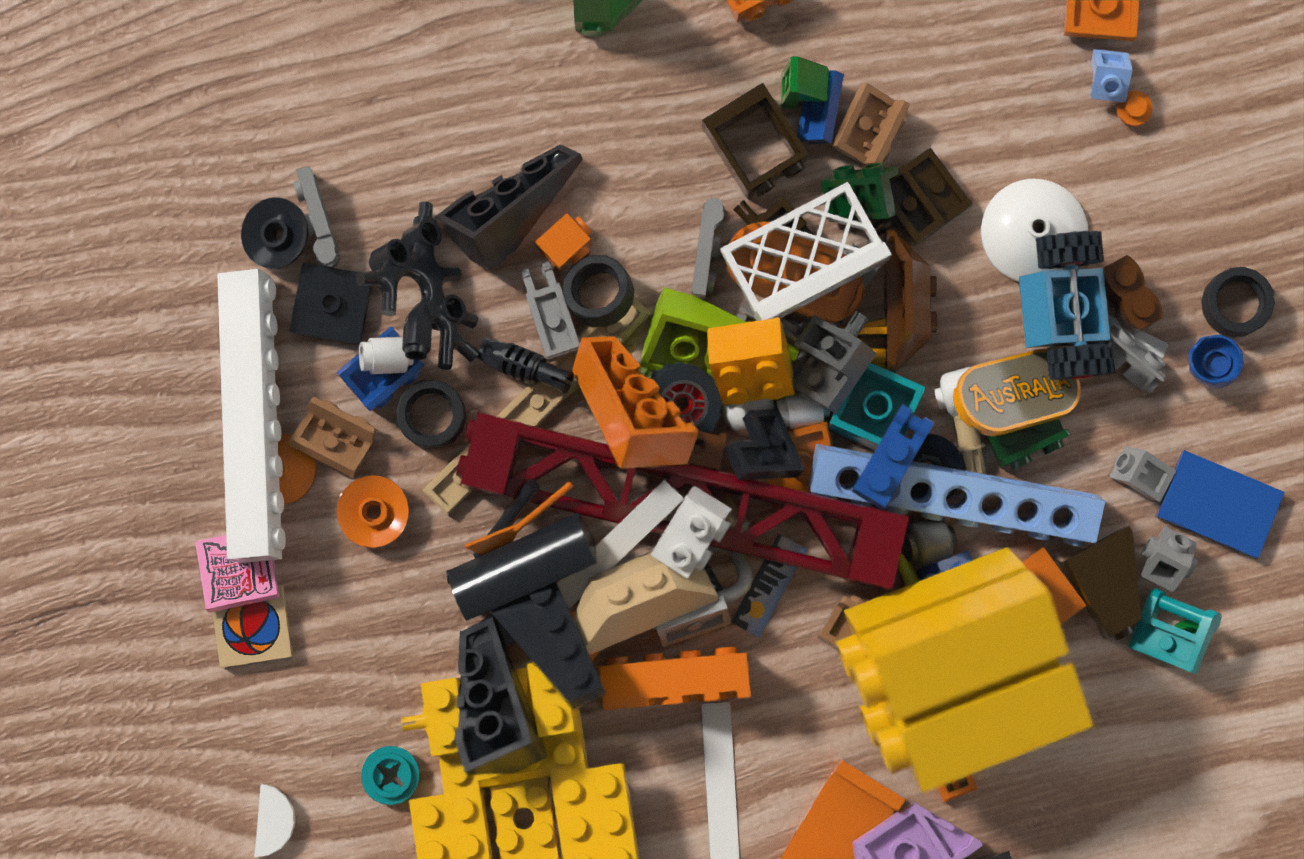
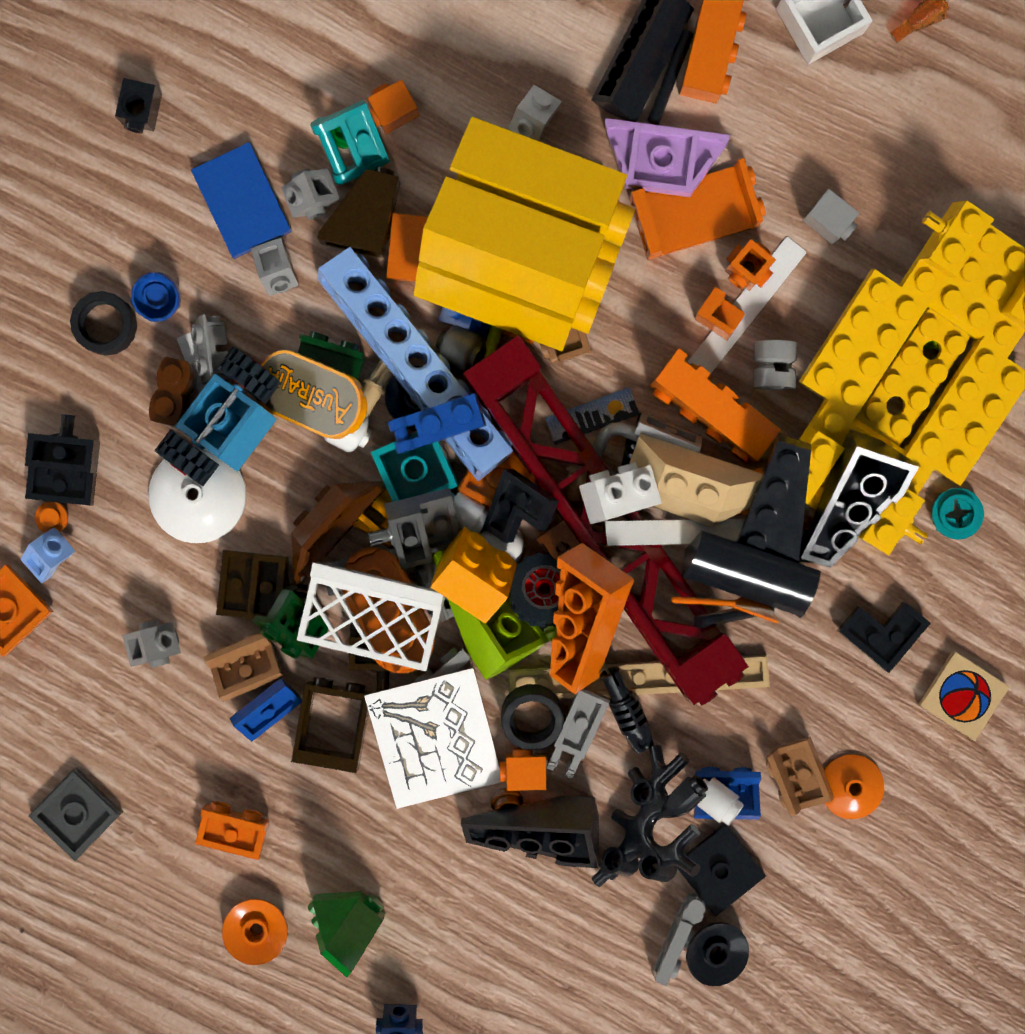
camera: 140 degrees left, 5 degrees up
(233, 583) = (941, 743): bright pink tile -> none
(250, 416) = (845, 841): white brick -> none
(355, 612) = (886, 642): none -> black plate
(359, 498) = (832, 706): orange dish -> none
(428, 387) = (743, 739): black tyre -> none
(559, 206) = (505, 799): none -> reddish brown plate
(662, 773) = (770, 354): none -> light grey wheel
(663, 203) = (434, 738): none -> white sticker
(738, 765) = (719, 314): none -> orange panel
(751, 842) = (758, 257): none -> orange brick
(803, 82) = (262, 736): green slope -> none
(960, 78) = (152, 644): none -> light grey brick
(1045, 795) = (534, 113): none -> white bracket
(1164, 156) = (62, 466): none -> black plate
(1168, 693) = (392, 106): none -> orange brick

